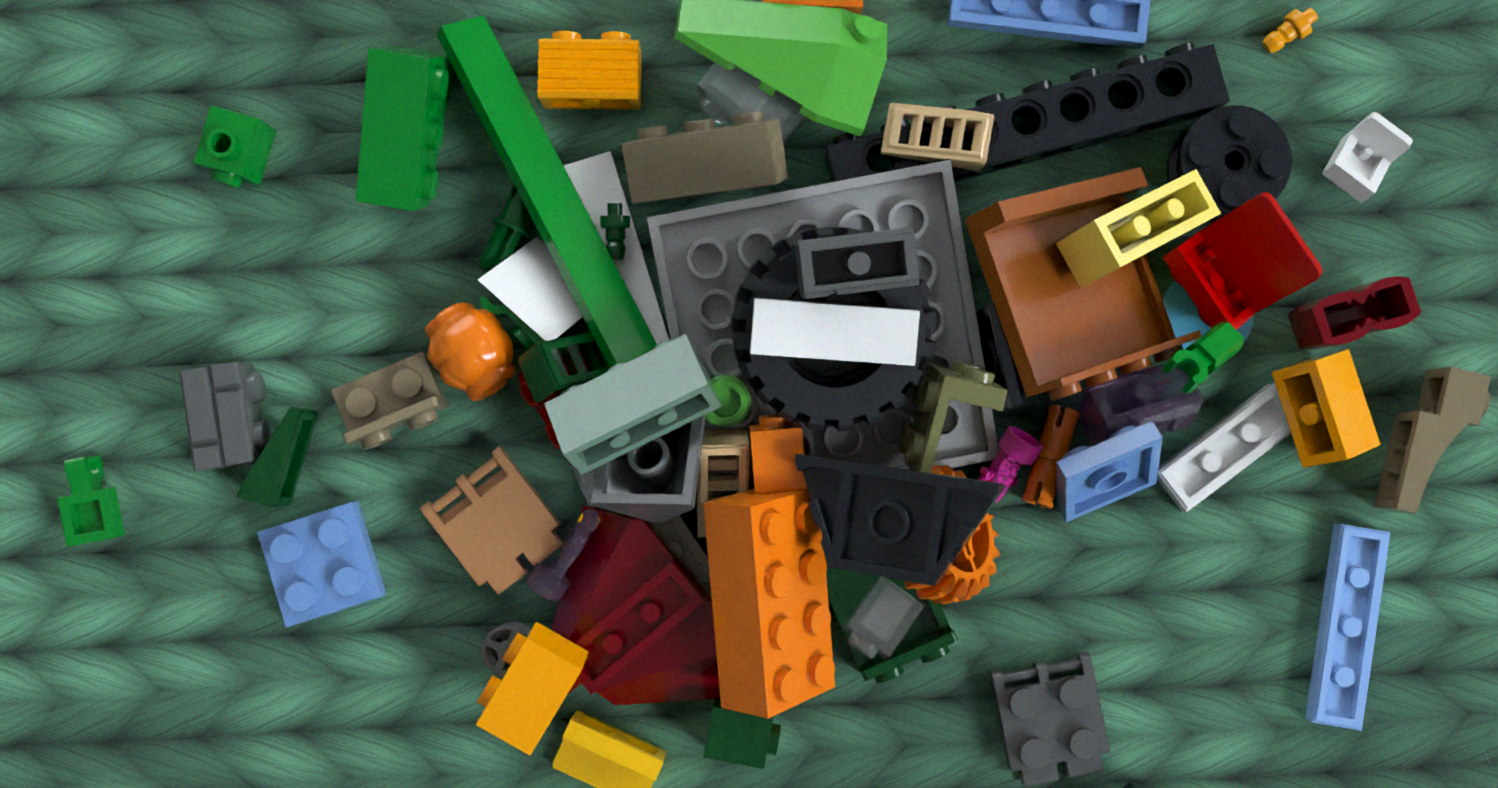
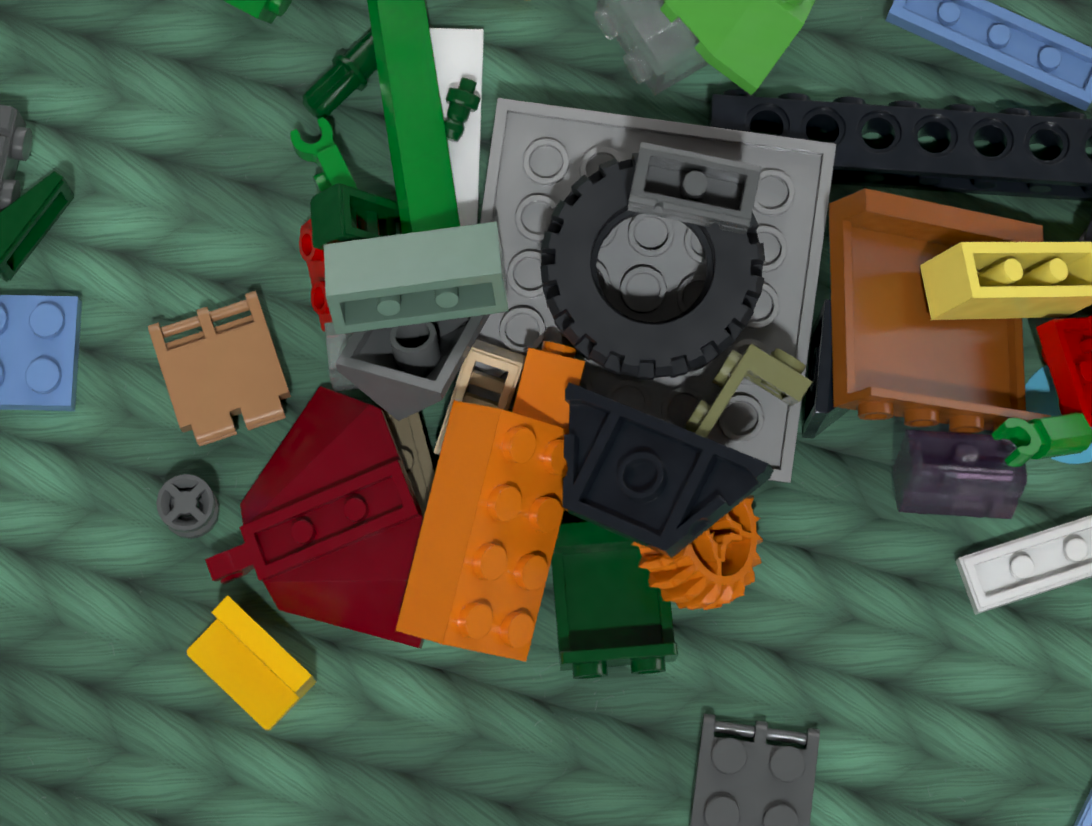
camera: 15 degrees right, 10 degrees down
(389, 400) = (156, 207): dark tan bracket -> none
(470, 350) = (262, 181): orange hair -> none
(532, 688) = (198, 541): light orange brick -> none
(534, 290) = (353, 139): white sticker -> none
(550, 578) = (258, 446): clear purple piece -> none
(705, 158) = (580, 62): dark tan brick -> none
(734, 400) = (521, 321): bright green tile -> none
(740, 737) = (405, 681): dark green brick -> none
(834, 331) = (650, 259): white tile -> none
(881, 619) = (602, 603): clear brick -> none
(939, 117) = (840, 100): tan slope -> none
(1016, 449) = (784, 503): dark pink piece -> none
(1055, 444) = (847, 501): orange pin -> none
(1108, 470) = (901, 530): medium blue plate -> none

